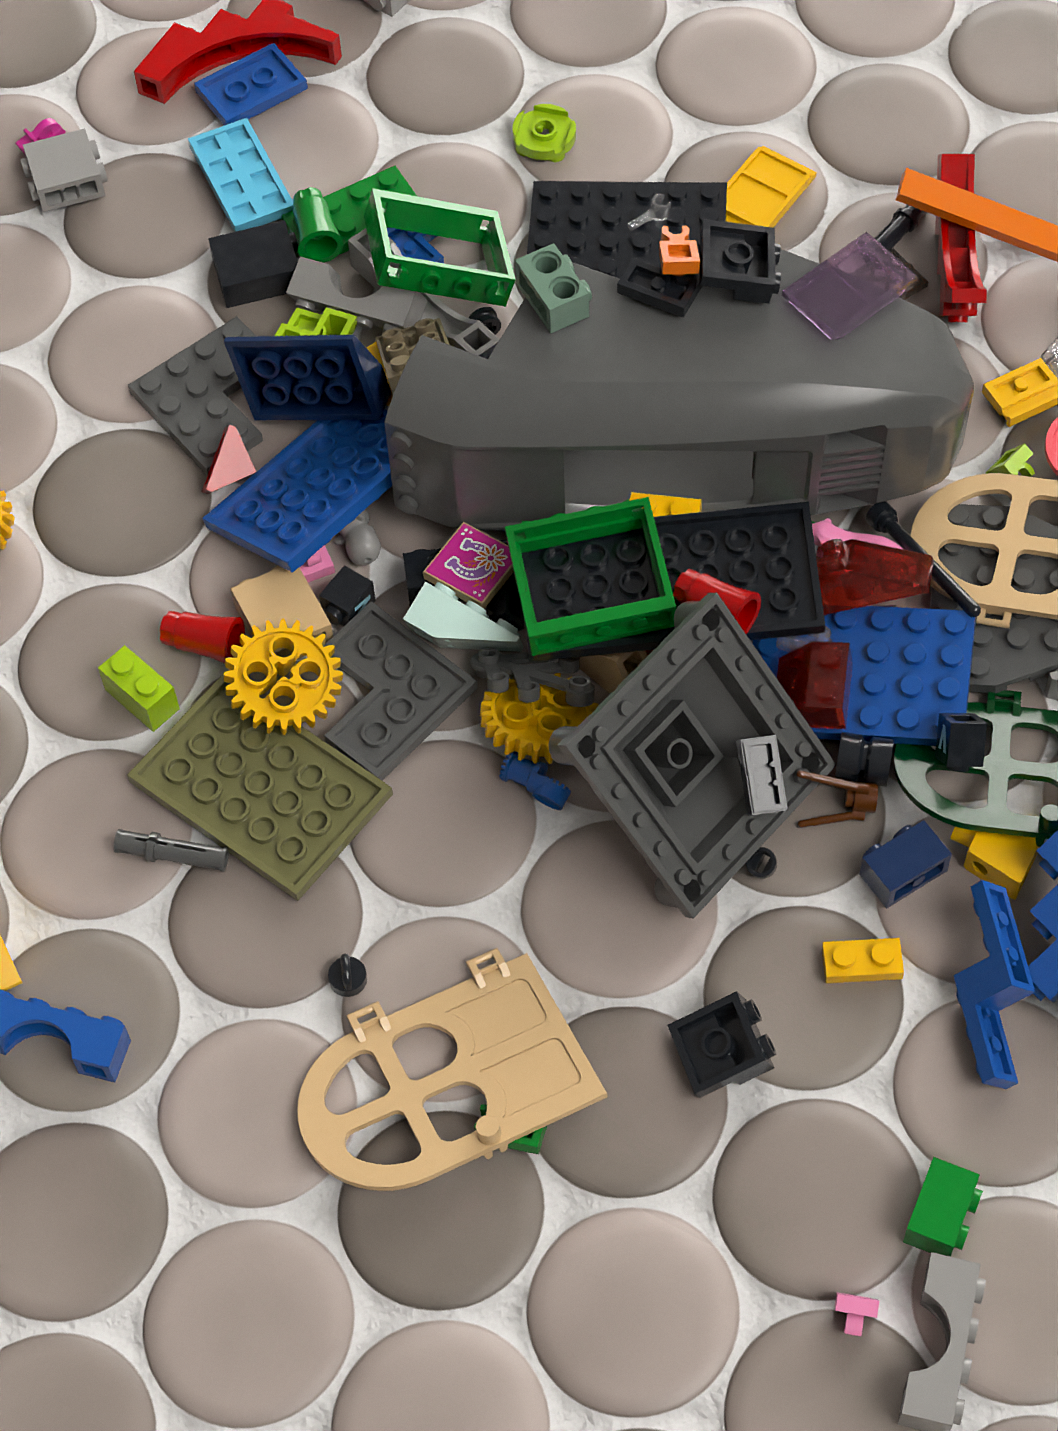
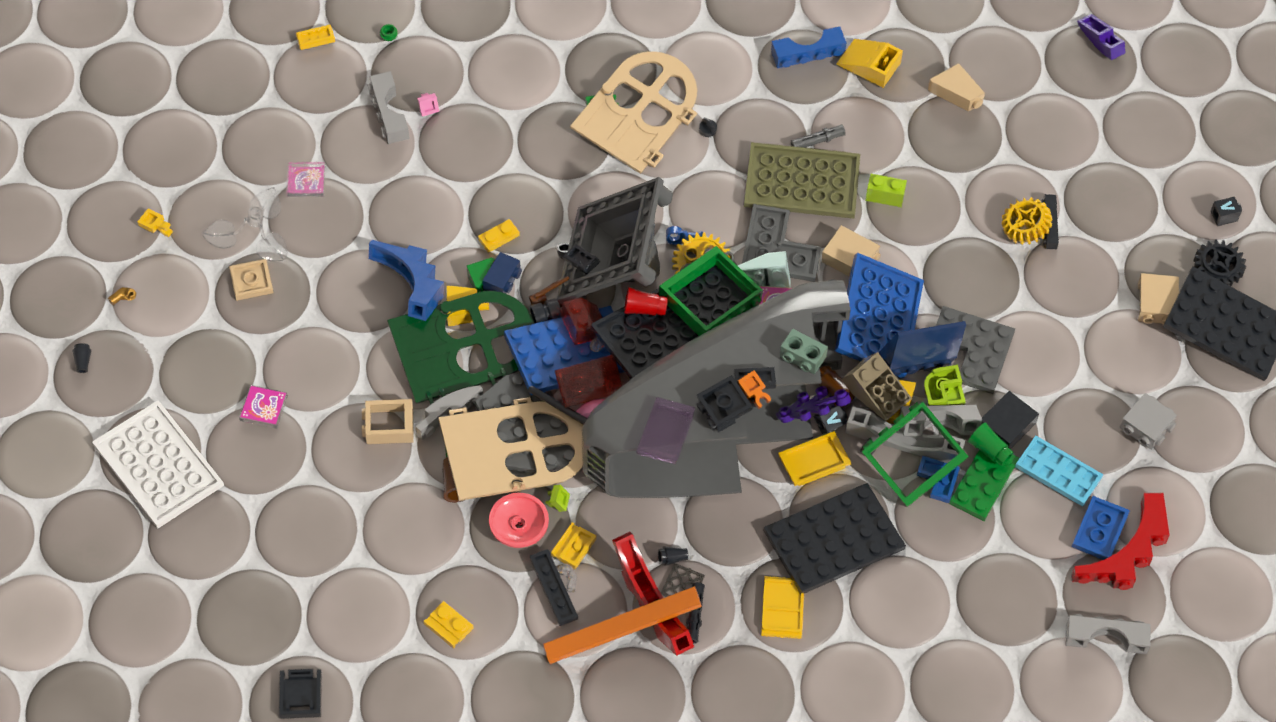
camera: 145 degrees right, 0 degrees up
(44, 129) = (1181, 437): dark pink piece -> none
(202, 634) = (878, 226): red plant -> none
(229, 463) = (930, 308): slope -> none
(259, 656) = (811, 212): yellow gear -> none
(346, 596) = (827, 270): black brick -> none
(549, 146) = (927, 571): lime plate -> none
(658, 212) = (826, 543): clear hand -> none
(722, 1044) = (535, 170): black plate -> none
(939, 892) = (477, 272): none -> green slope
(941, 1208) = (413, 153): green brick -> none
(961, 741) = (504, 323): black brick -> none
(993, 985) = (436, 240): blue bracket -> none

